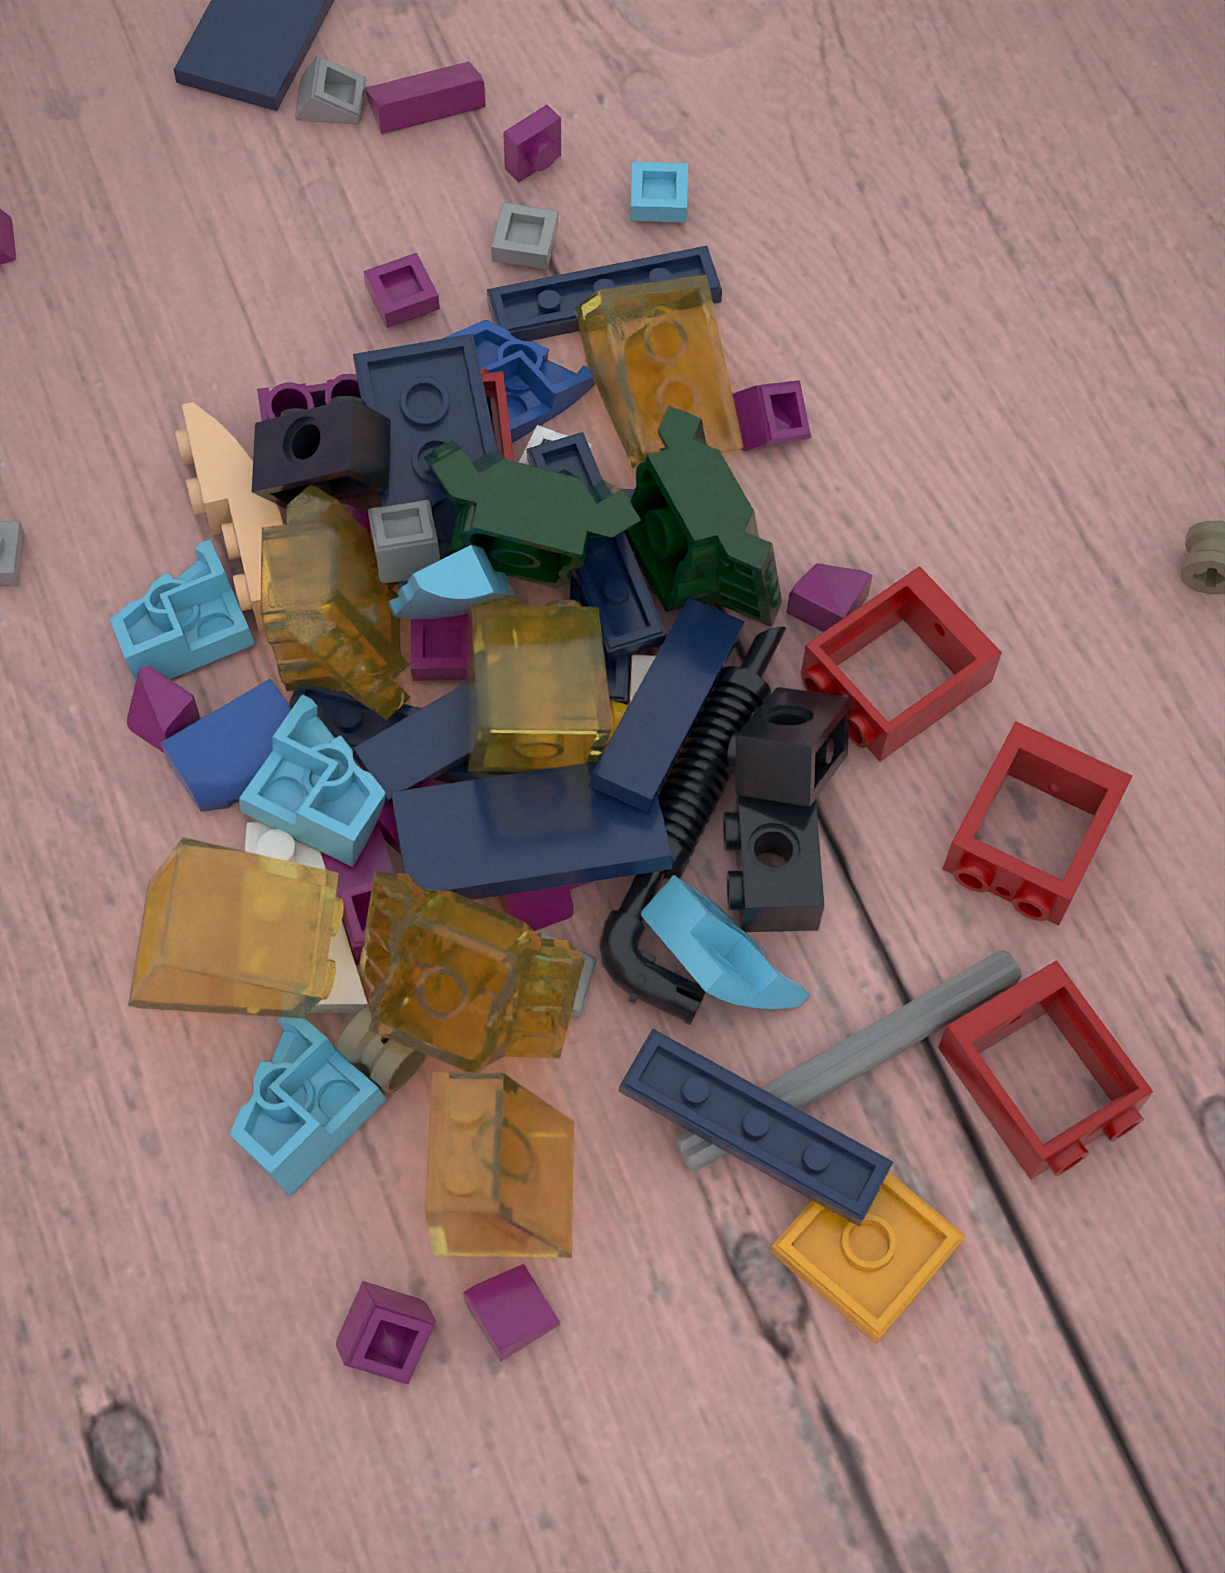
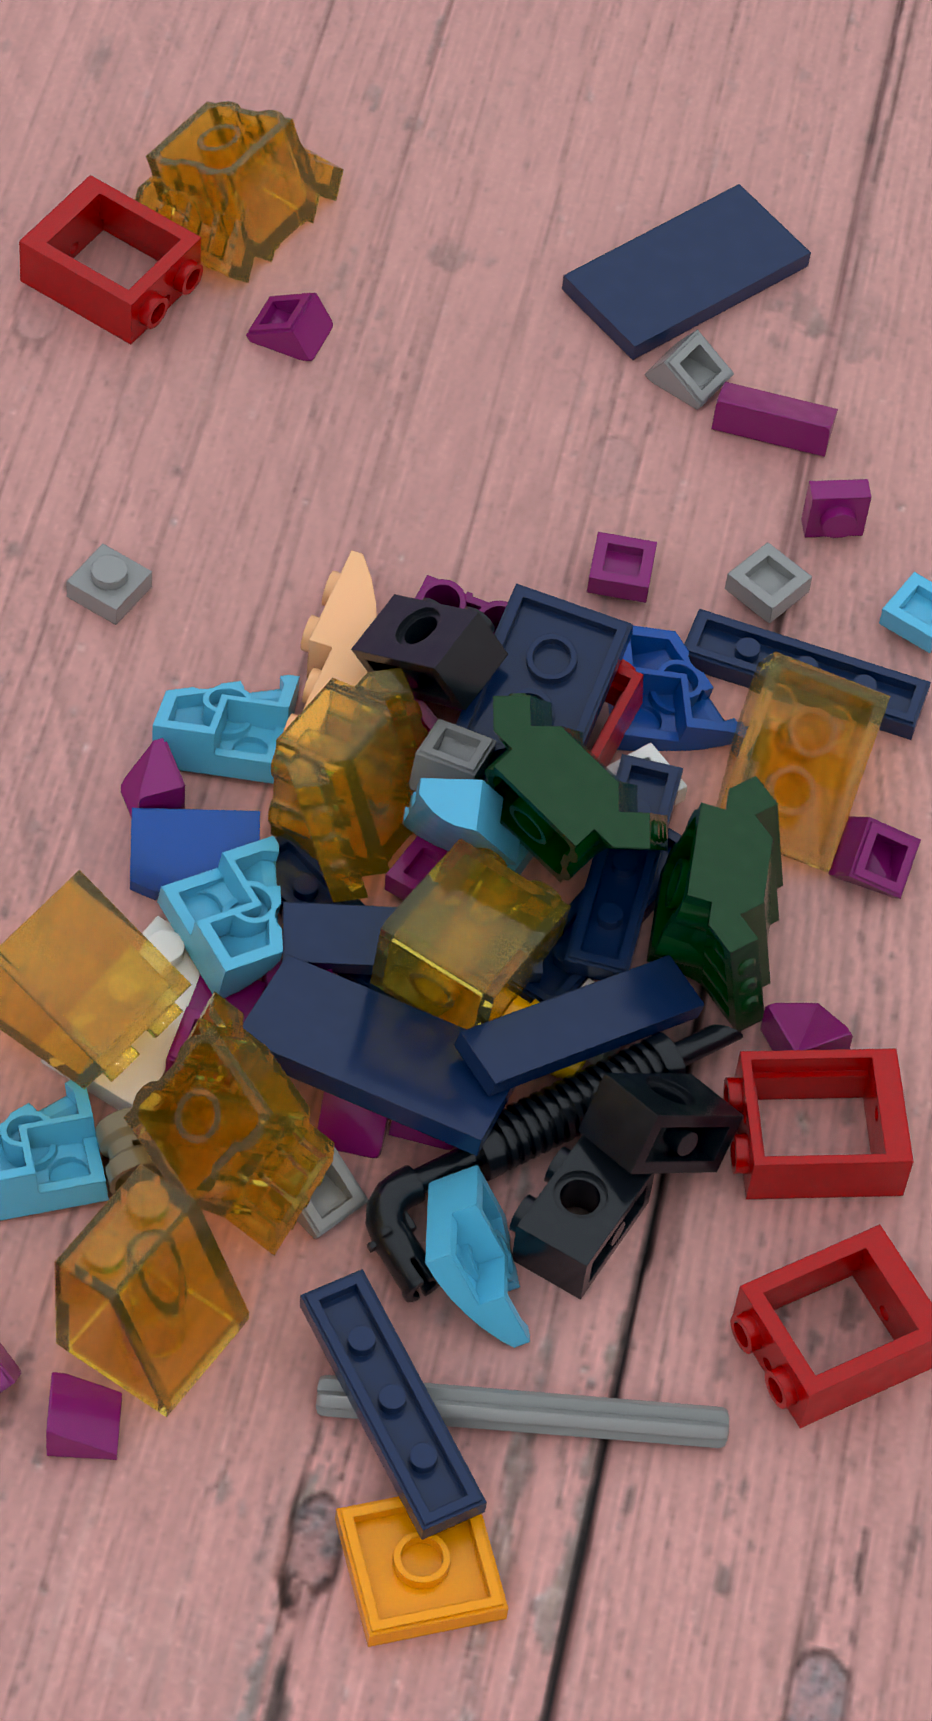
camera: 30 degrees right, 10 degrees down
(1055, 994) = (683, 1459): red window -> none

